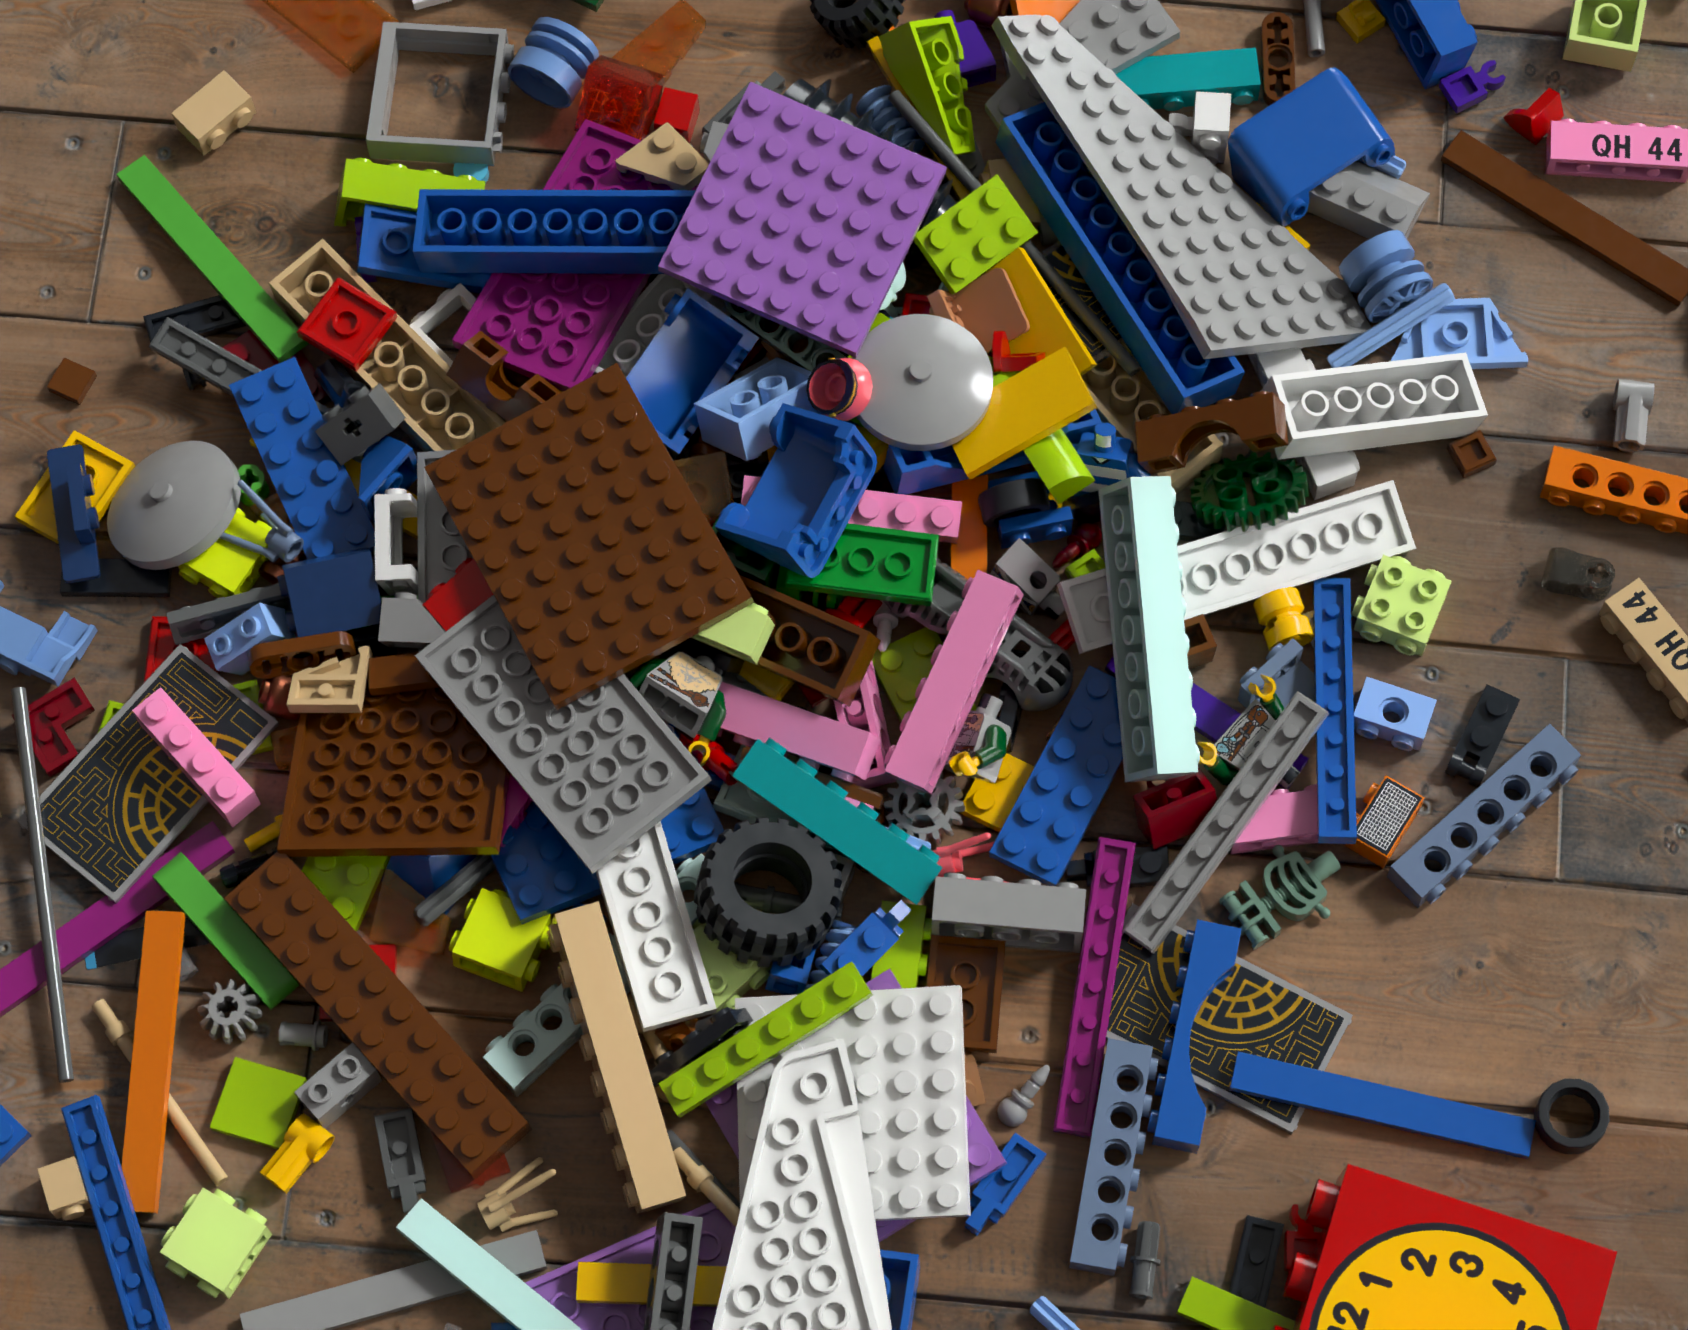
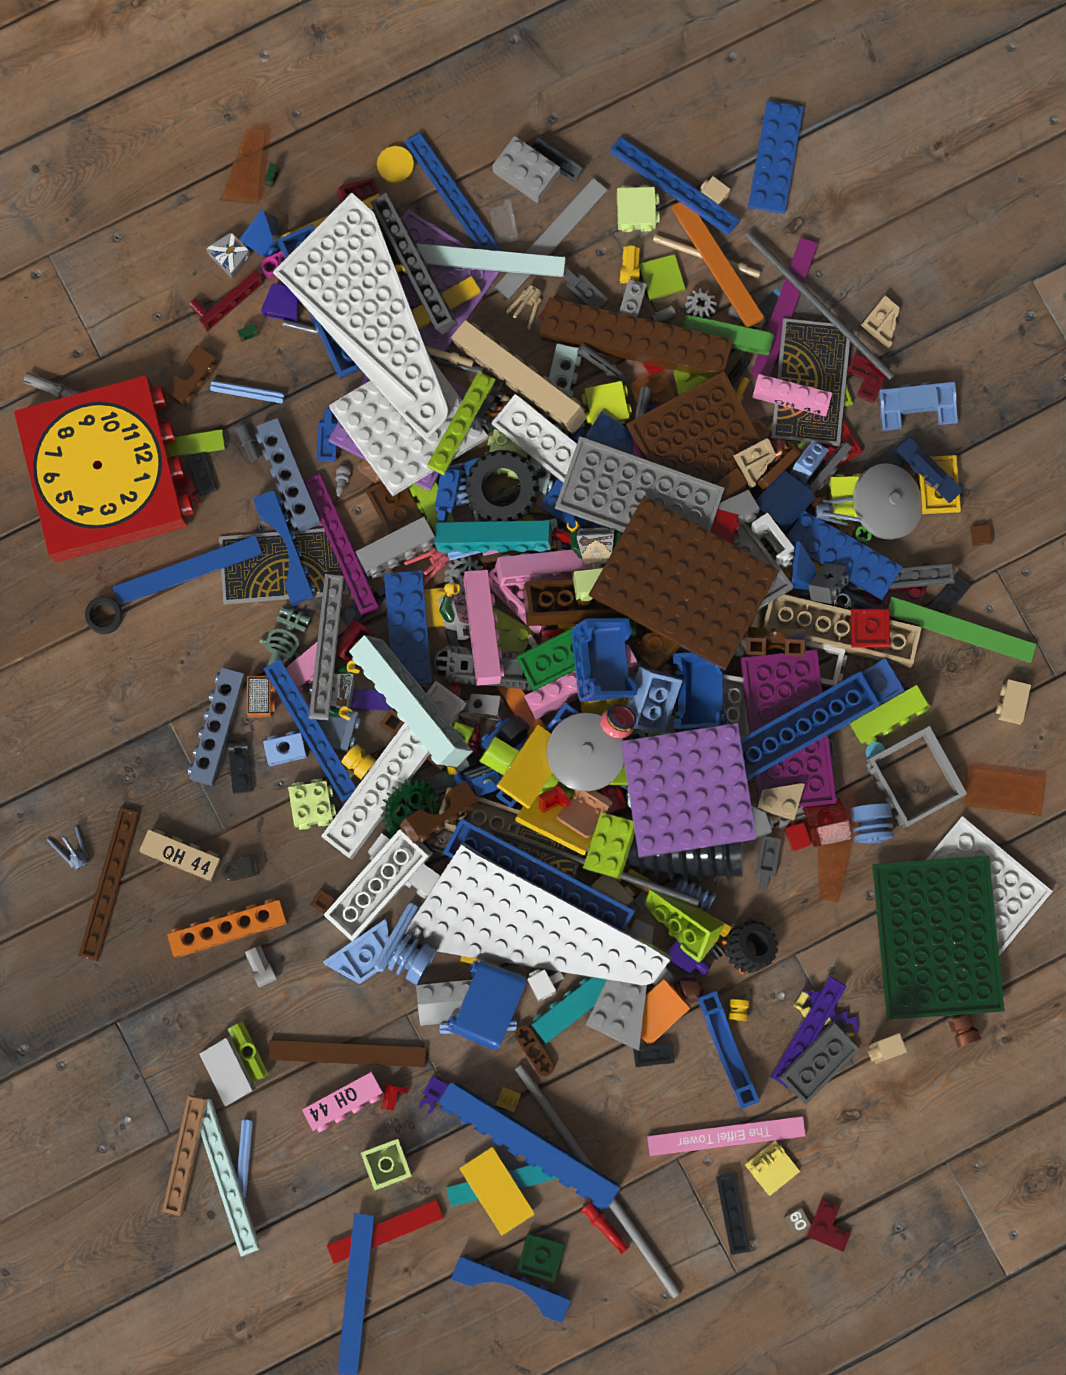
camera: 145 degrees right, 10 degrees up
(455, 998) = (620, 375): none -> dark grey pin

